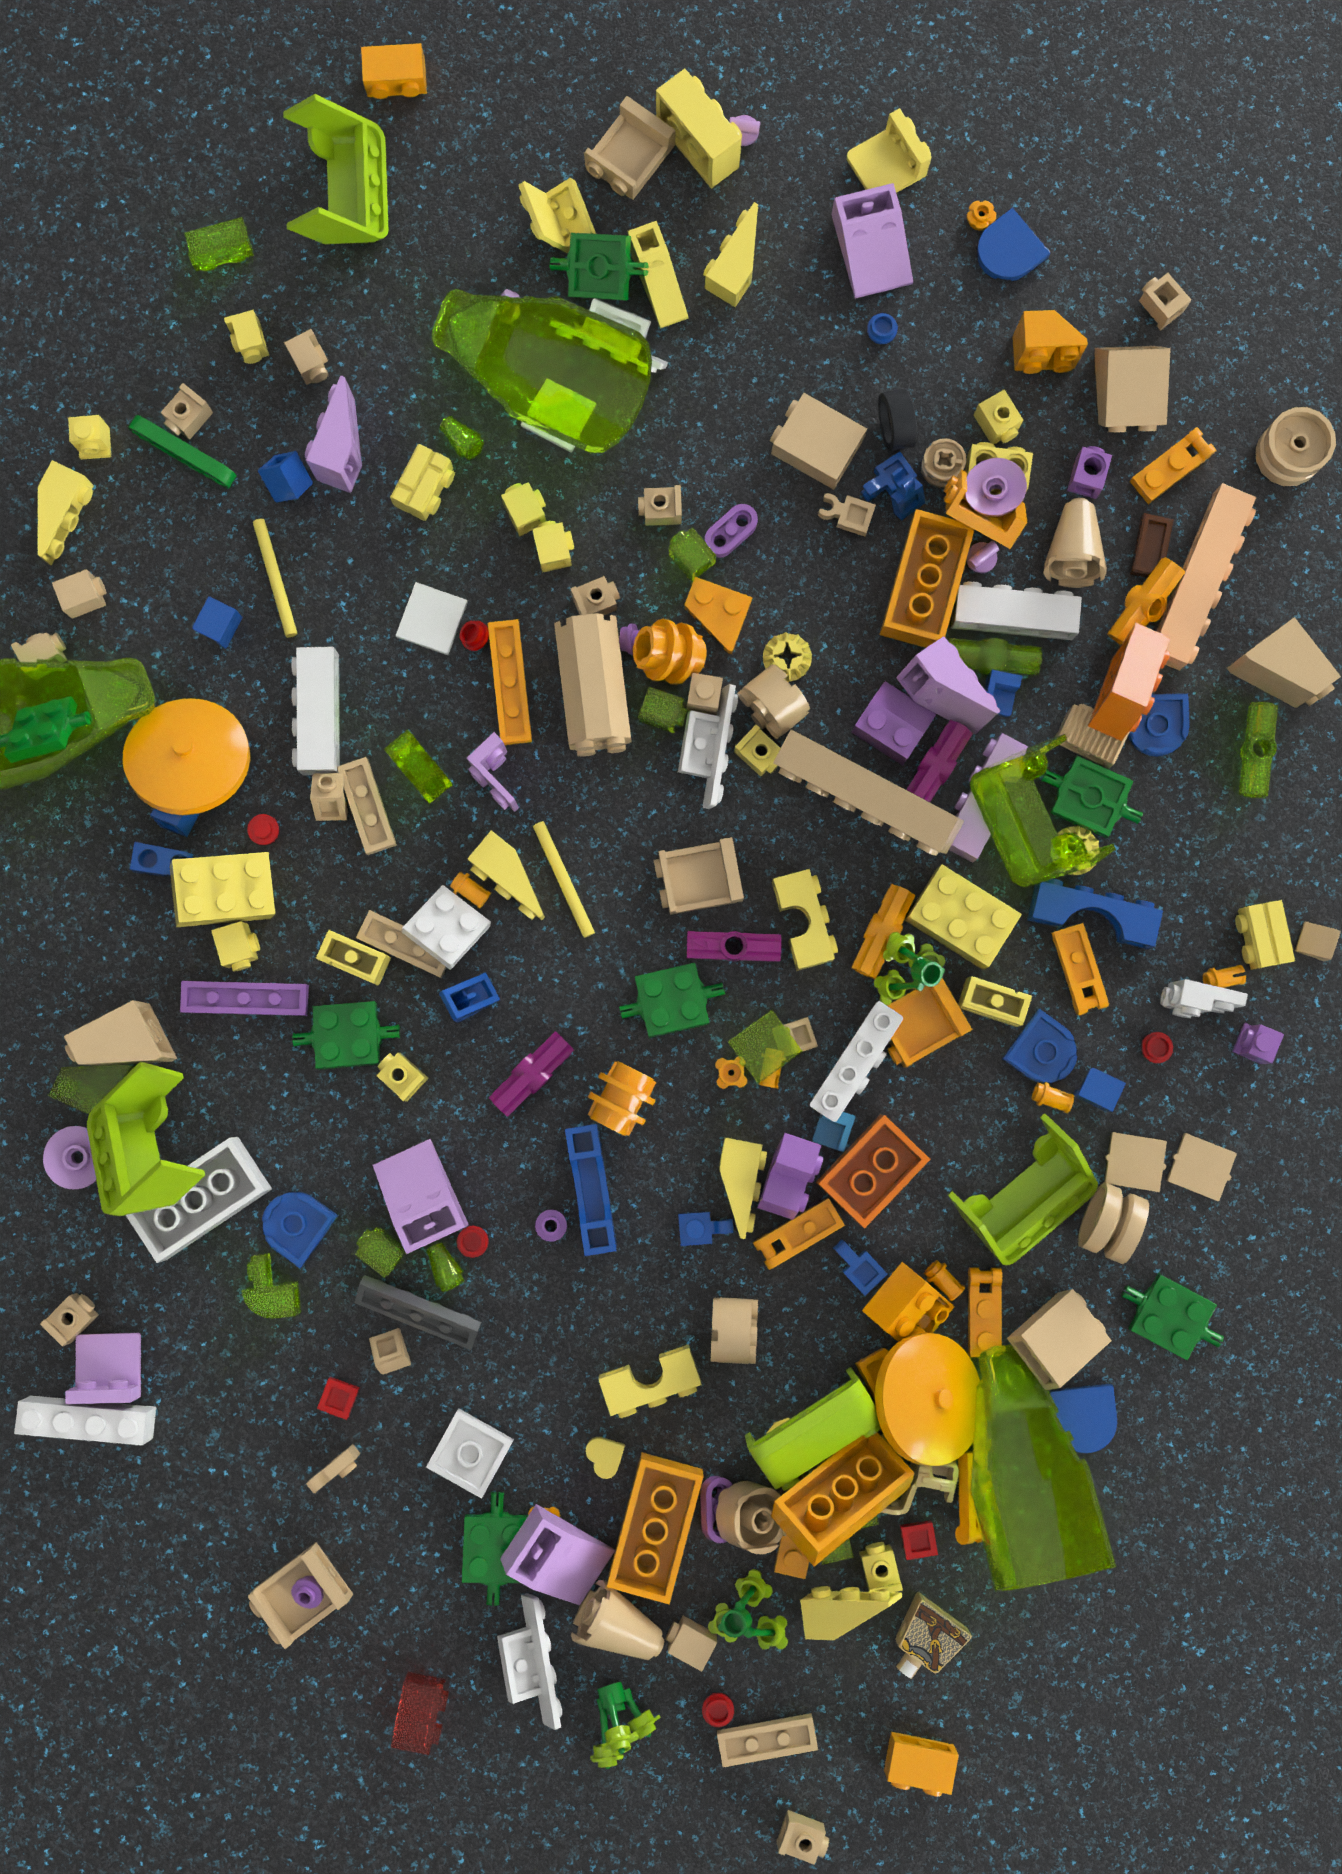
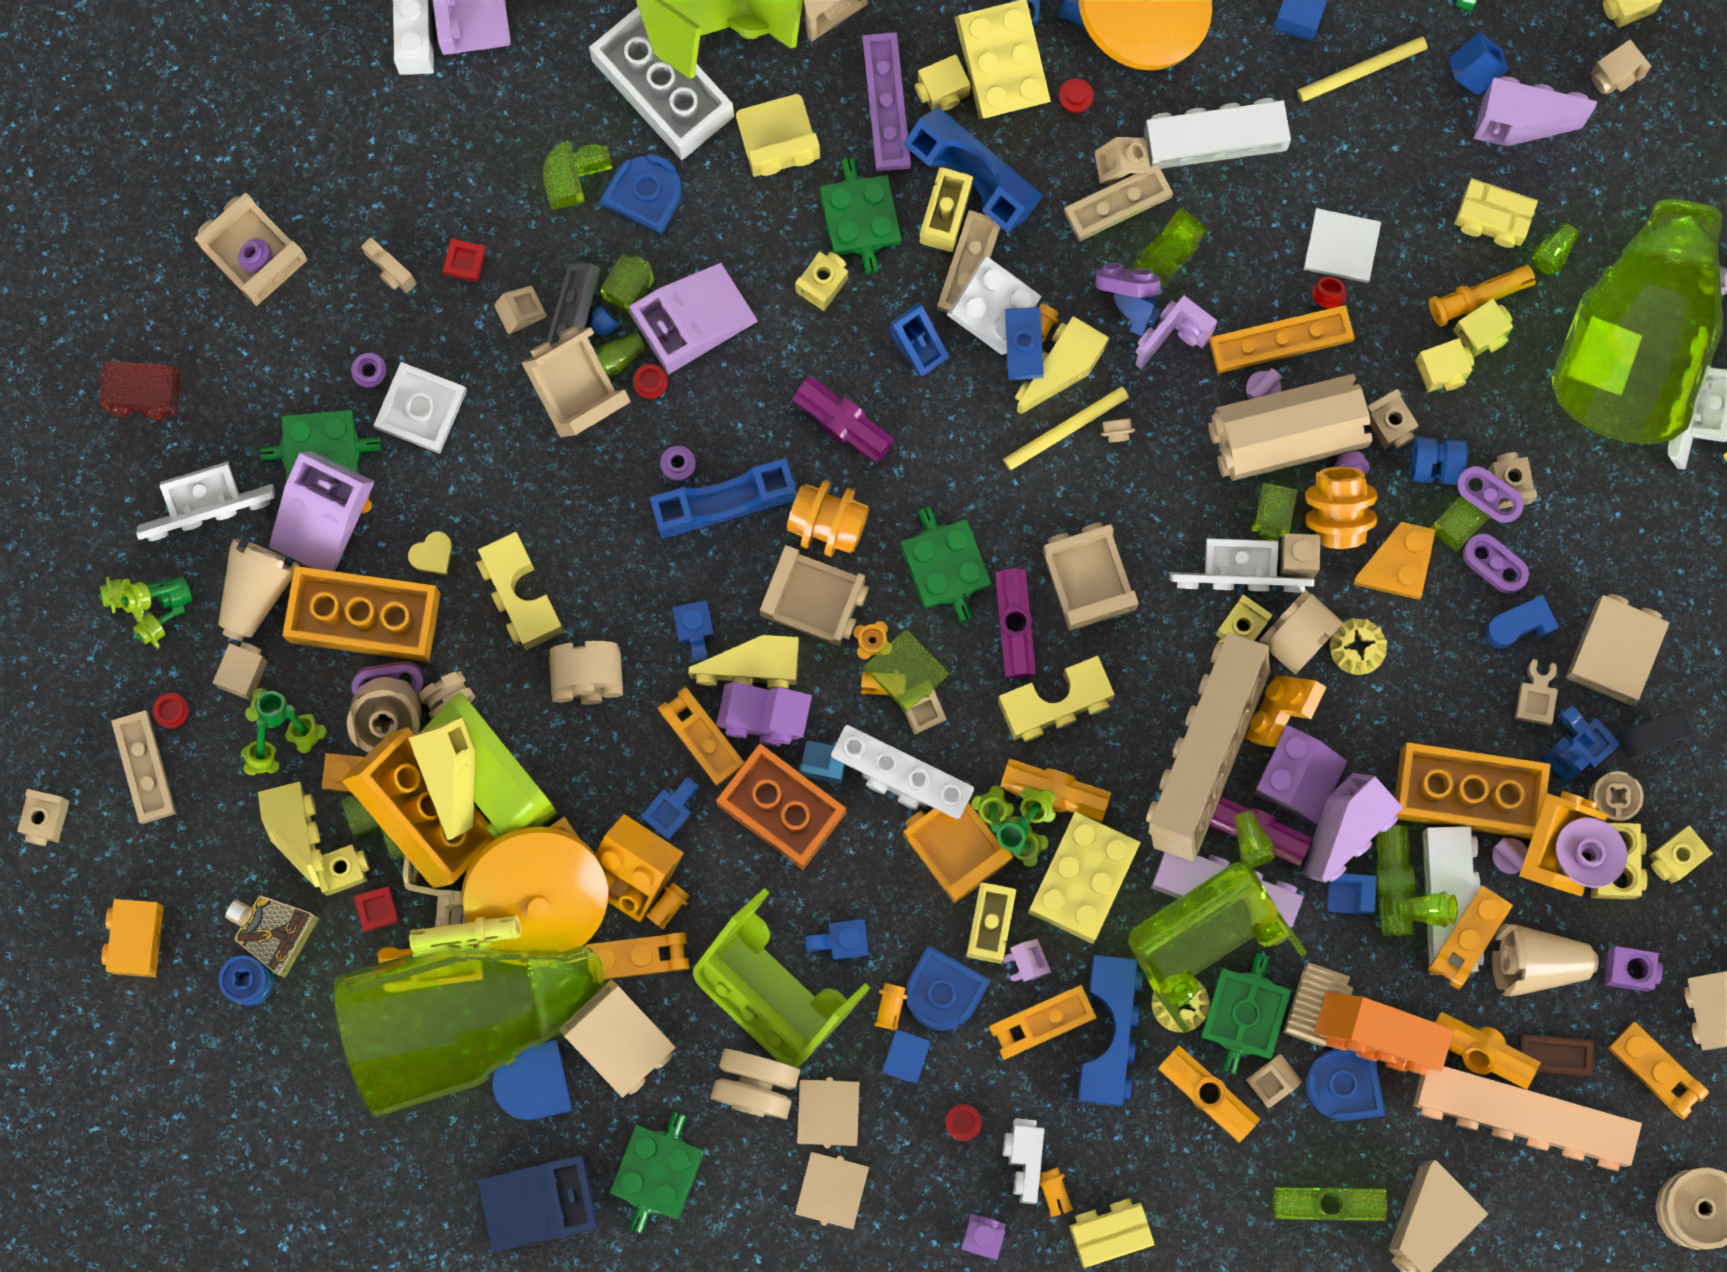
camera: 85 degrees right, 5 degrees down
(262, 1099) = (777, 135): none -> light yellow bracket
(292, 950) = (946, 144): none -> blue arch
(412, 1277) = (602, 321): none -> blue hinge
(424, 1505) = (364, 361): none -> medium lavender plate
(442, 807) = (1127, 282): none -> medium lavender plate
(464, 799) = (1139, 310): none -> blue plate
(469, 1312) = (572, 382): none -> tan panel
(487, 904) = (1024, 343): none -> blue plate
(496, 518) = (1467, 299): none -> light orange pin
(550, 703) = (1263, 384): none -> lavender plate
(571, 834) = (1117, 430): none -> tan plate
(637, 559) = (1438, 460): none -> blue wheel
(675, 523) = (1490, 494): none -> medium lavender plate
(687, 1118) = (813, 597): none -> tan panel
(737, 1458) = (440, 693): none -> tan wheel
(786, 526) = (1519, 621): none -> blue leg
(819, 1468) = (449, 773): none -> light yellow slope
(830, 728) = (1283, 699): none -> light orange plate
(951, 768) = (1252, 839): none -> clear neon green cone
(960, 1457) = (480, 932): none -> light yellow pin
(973, 1668) = (246, 980): none -> blue wheel
(990, 1129) = (844, 940): none -> blue plate
(1027, 973) = (1029, 960): none -> lavender tile
(1028, 627) = (1432, 909): none -> clear neon green cone
(1054, 598) = (1470, 936): none -> light orange plate
(1148, 781) = (1274, 1081): none -> tan slope
(1169, 825) = (1226, 1111): none -> light orange piece
(1192, 1422) = (538, 1203): none -> dark blue slope

